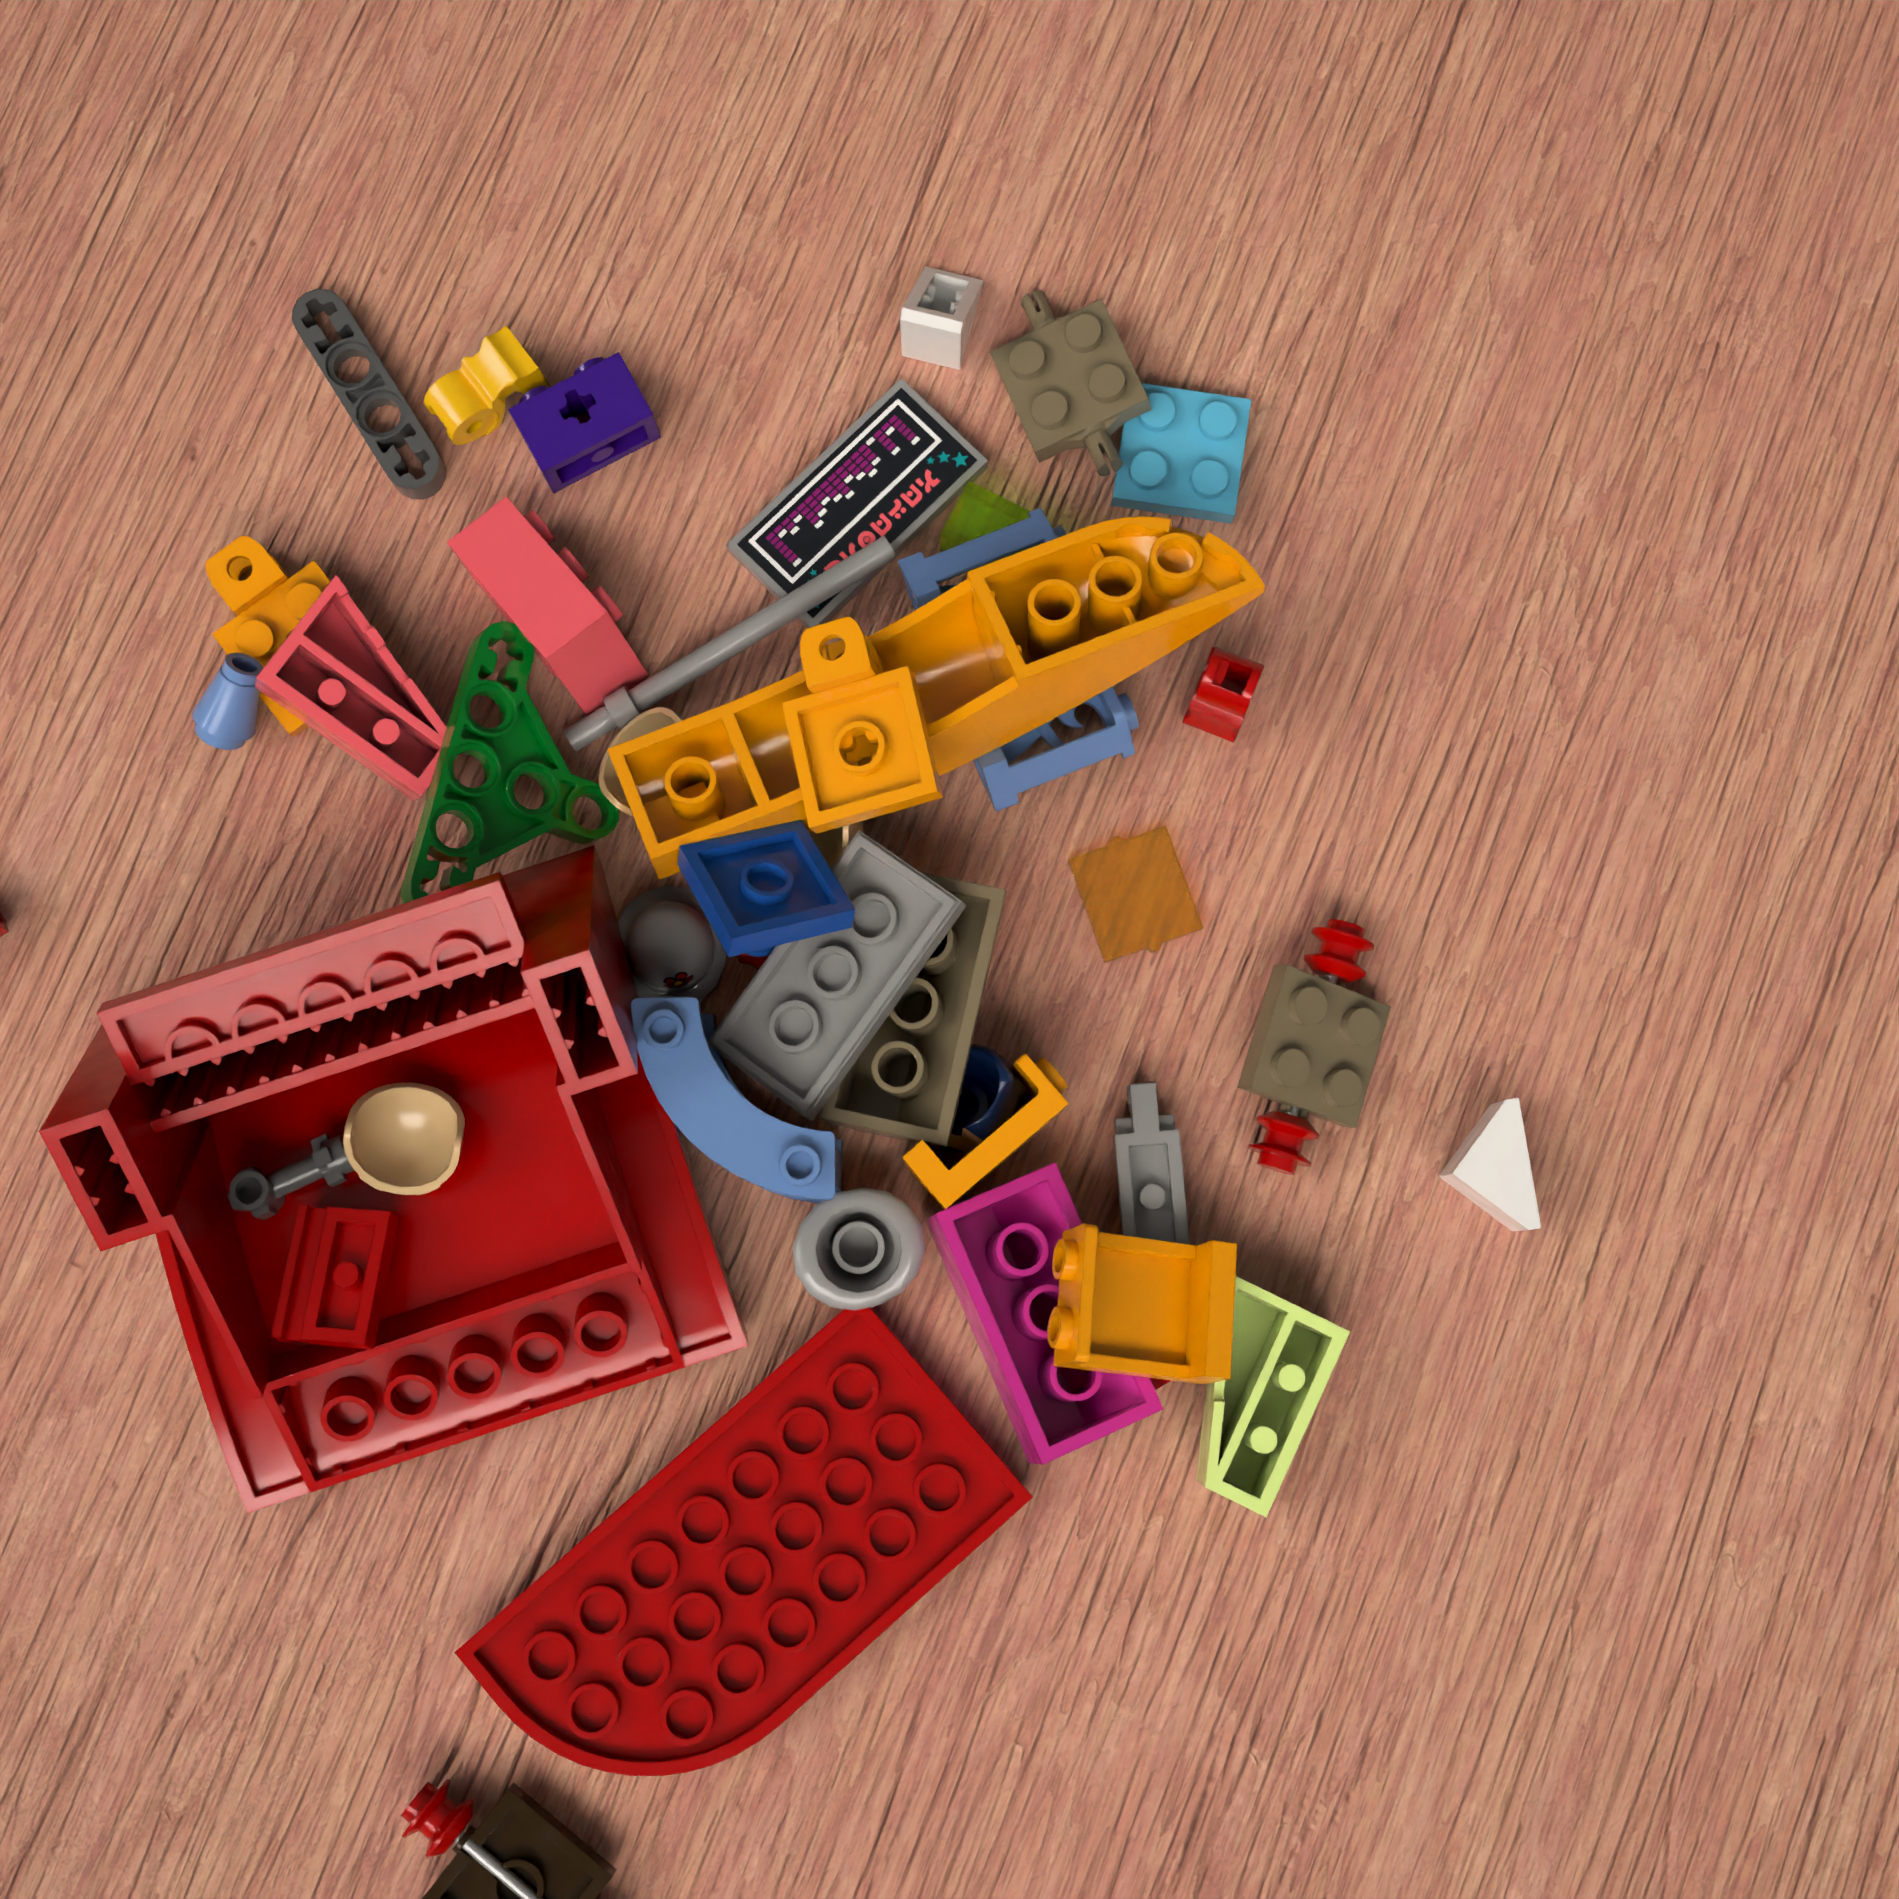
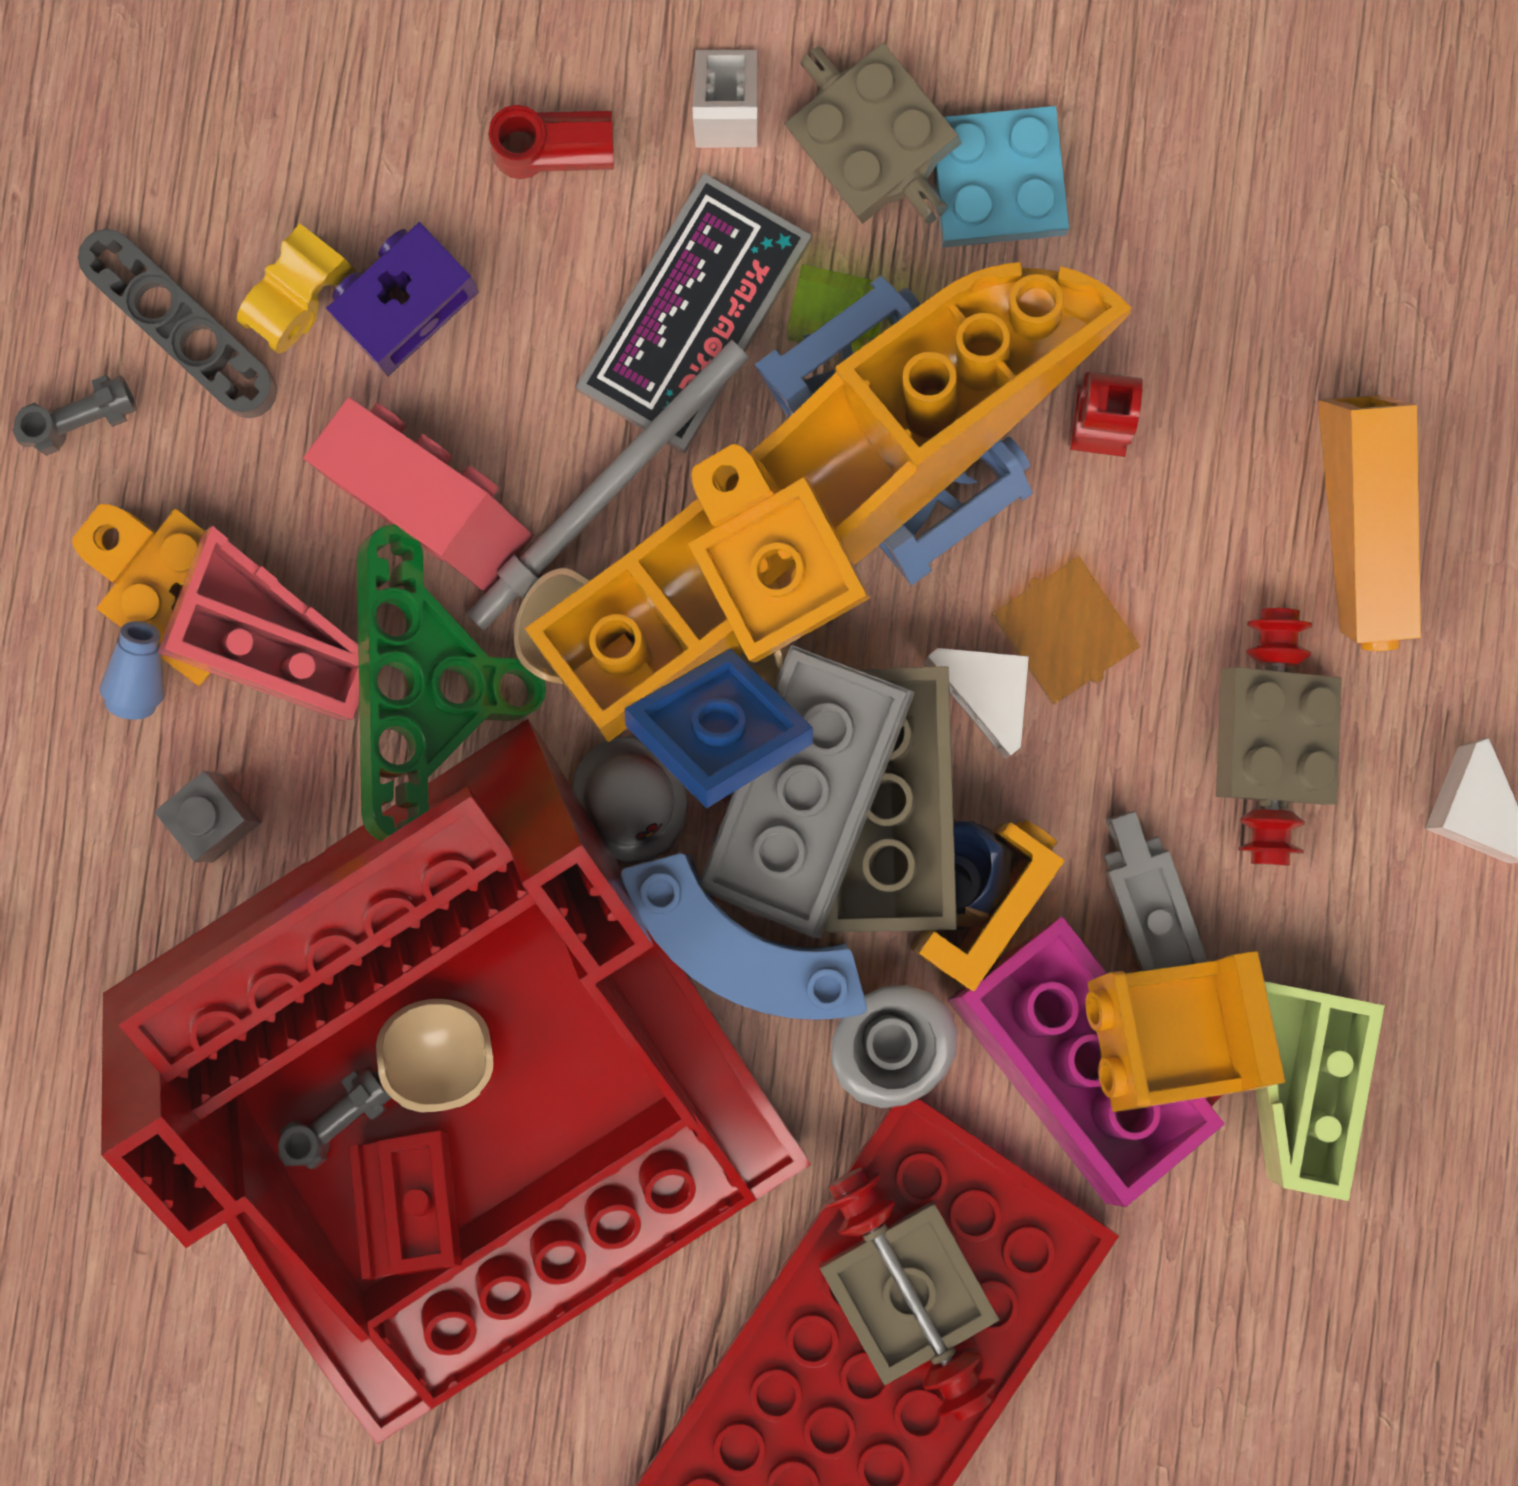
camera: 10 degrees left, 5 degrees up
(219, 460) = (48, 430): none -> dark grey bar
(259, 857) = (207, 817): none -> flat silver brick
(773, 314) = (561, 141): none -> red piece
(808, 1498) = (909, 1294): none -> dark tan plate
(1042, 928) = (989, 691): none -> white slope
(1458, 860) = (1373, 516): none -> light orange slope

